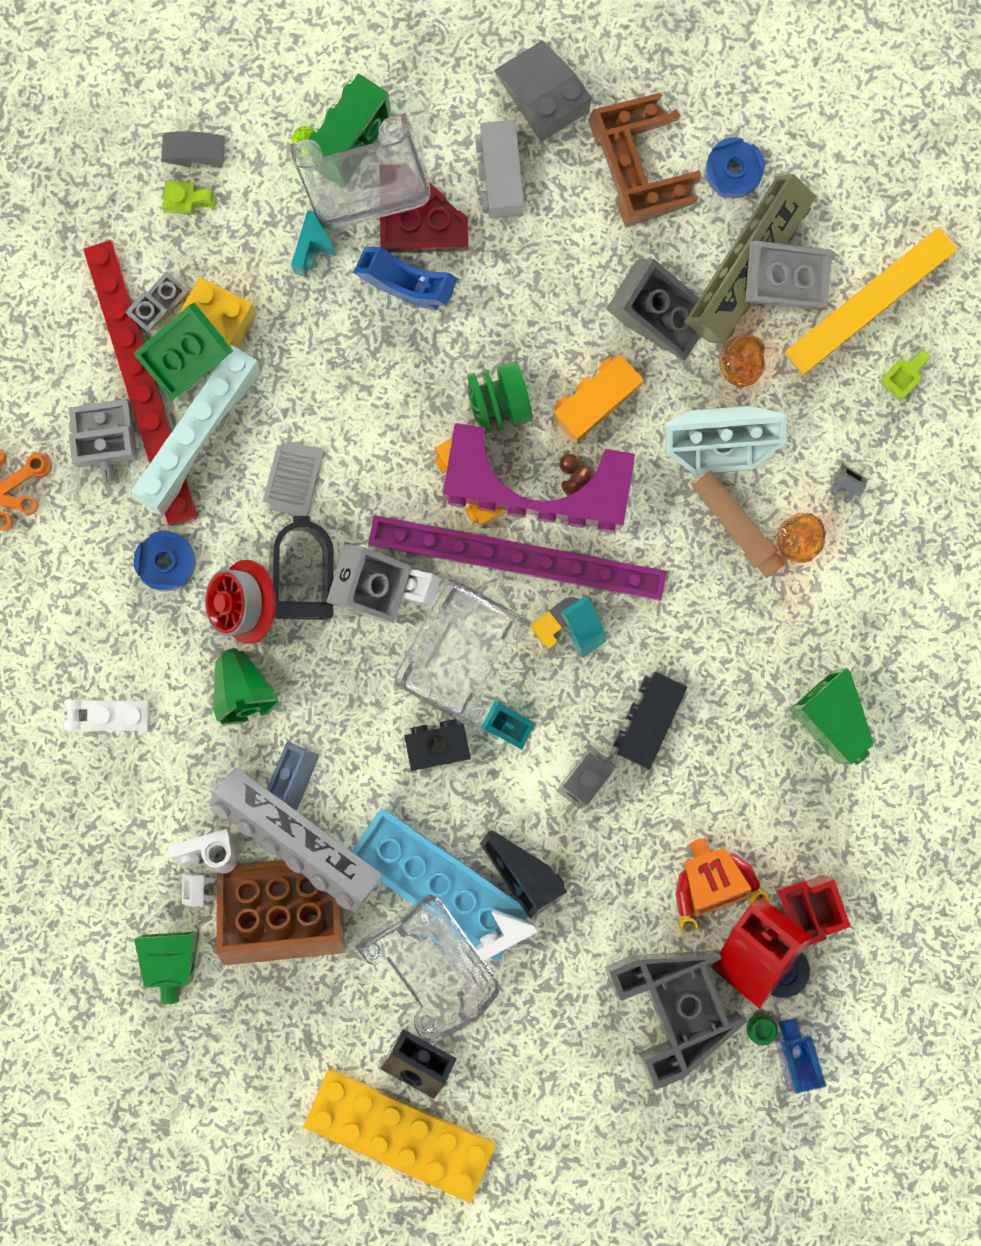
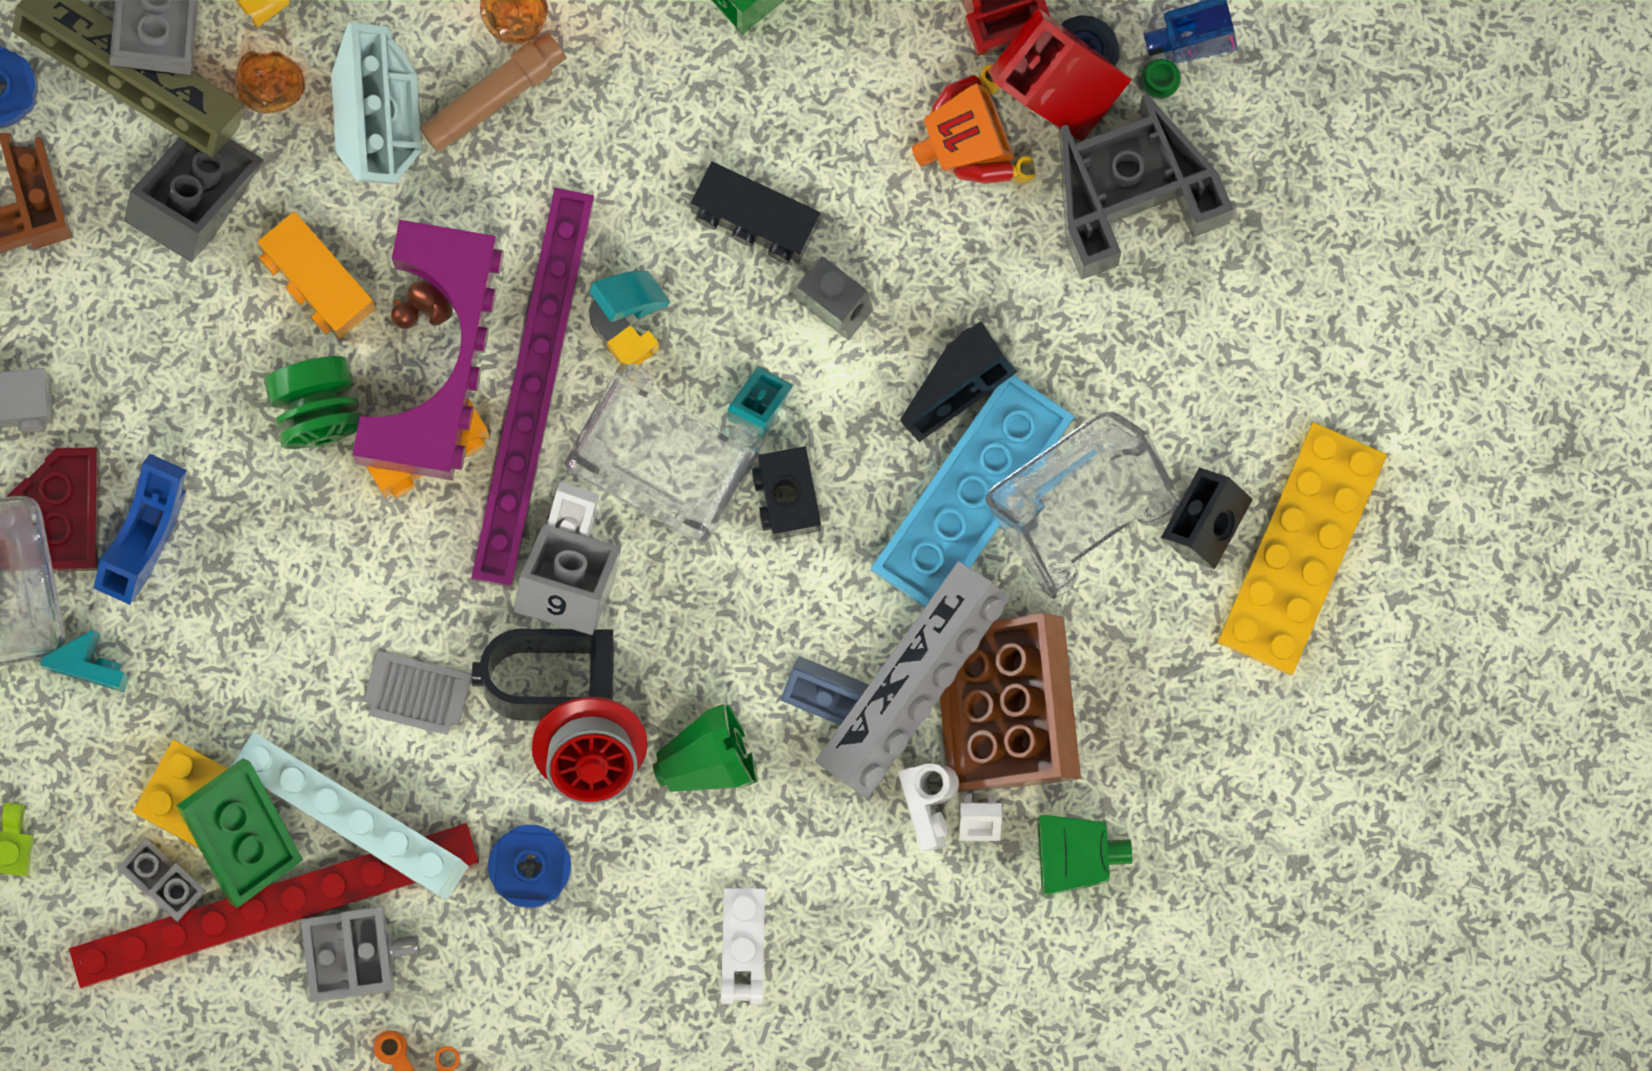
camera: 95 degrees left, 5 degrees down
(513, 931) = (1035, 393): white slope -> none

